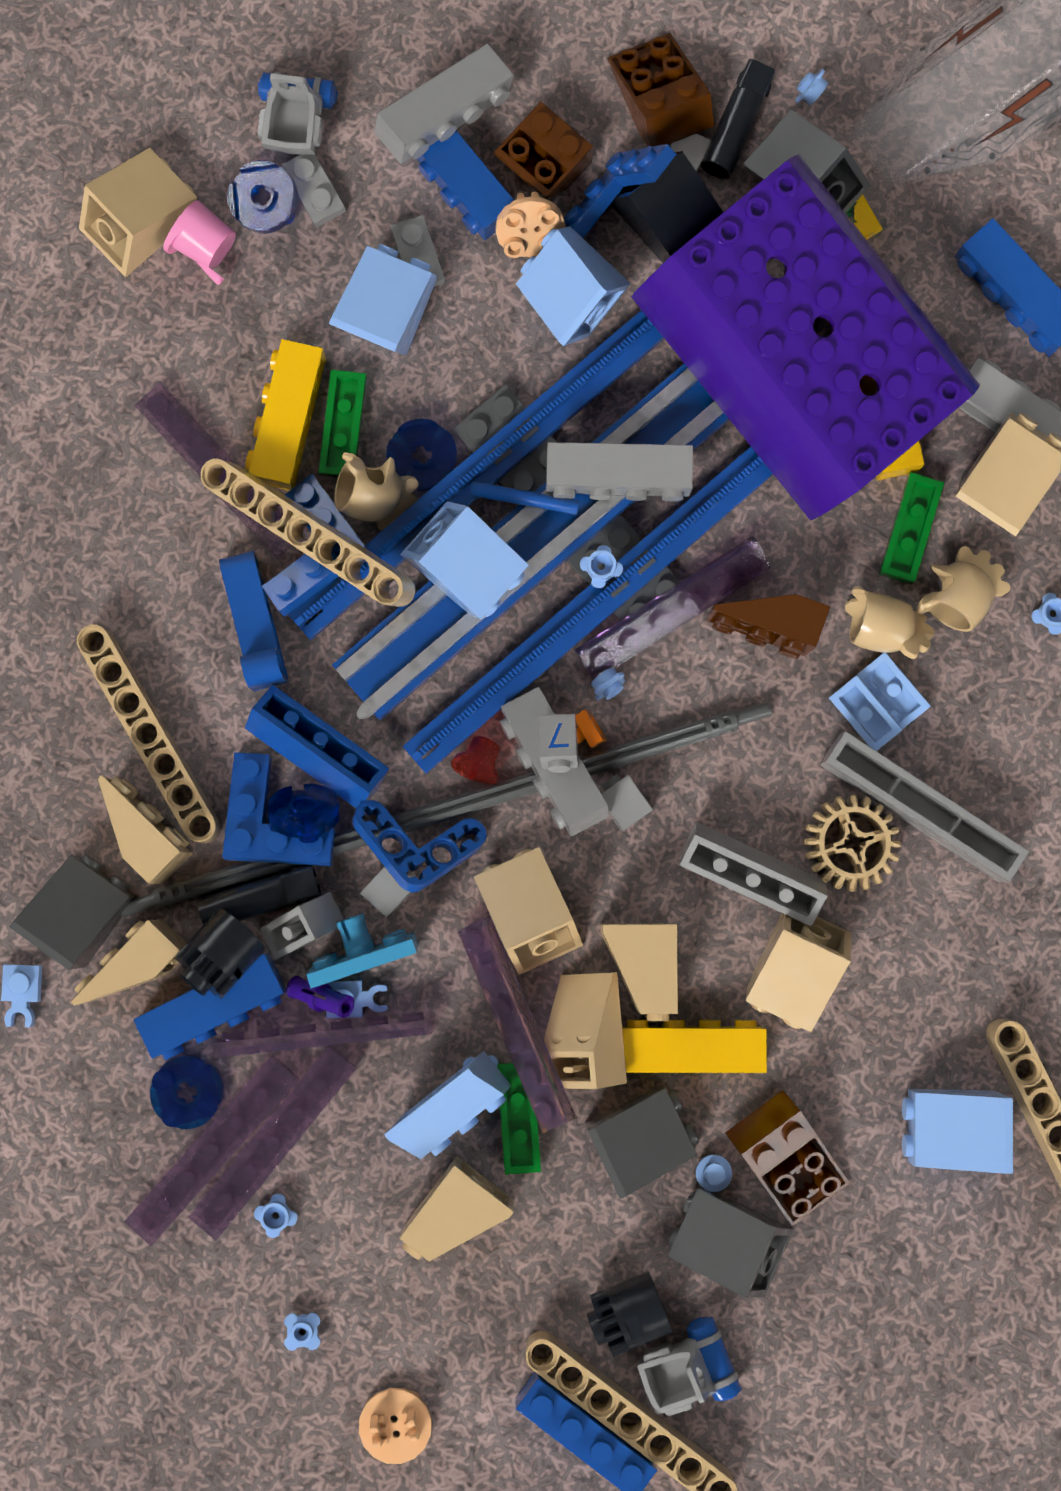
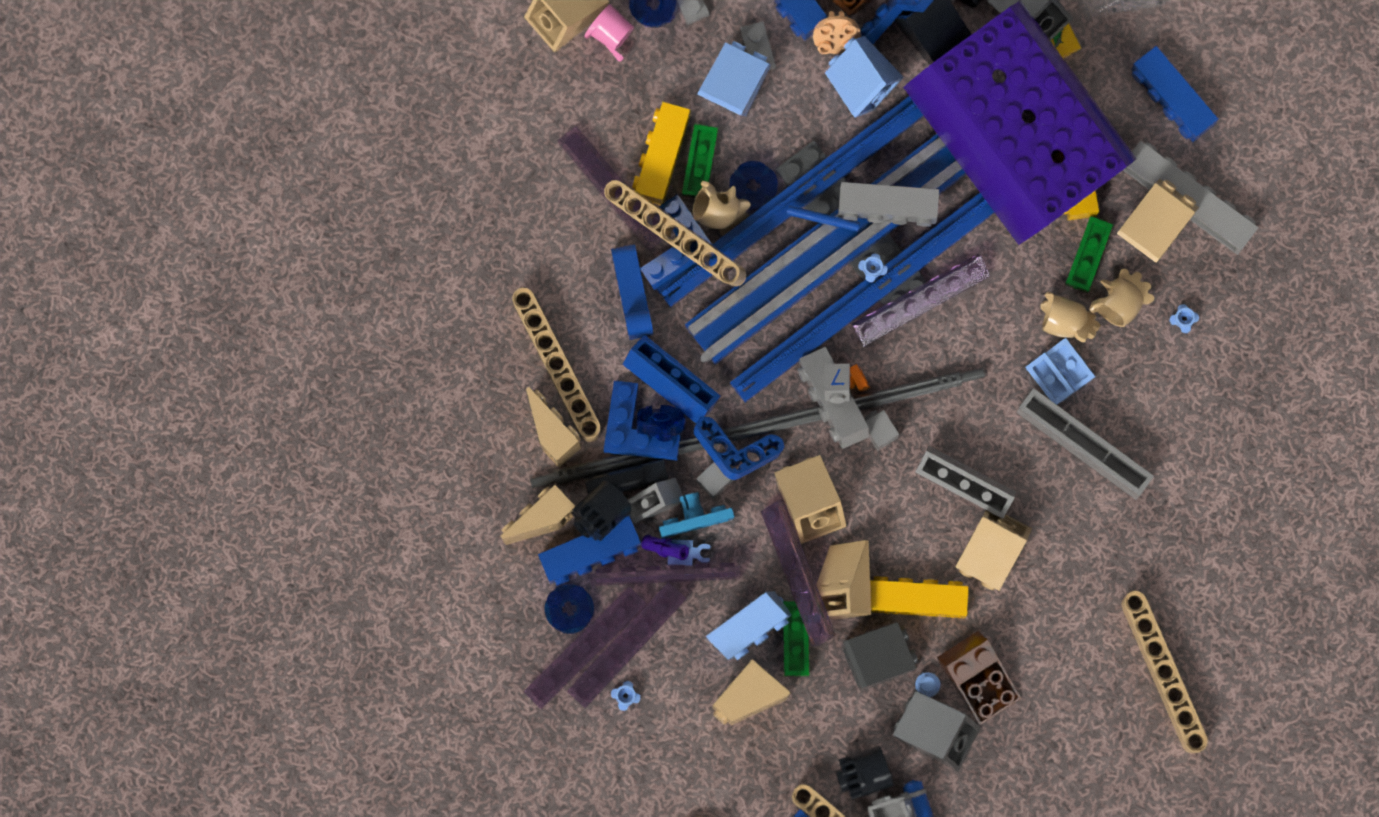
camera: 10 degrees right, 5 degrees down
(21, 986) = (459, 531): light blue plate -> none
(74, 912) = (502, 480): dark grey slope -> none
(294, 1338) = (645, 779): light blue plate -> none
(465, 559) = (781, 257): light blue slope -> none
(478, 761) = (781, 396): clear red piece -> none
(608, 684) = (873, 348): light blue plate -> none
(647, 965) = (888, 537): tan slope -> none
(783, 621) = (993, 311): reddish brown slope -> none
(856, 858) = (1030, 445): tan gear -> none
(959, 1130) = (1095, 662): light blue slope -> none

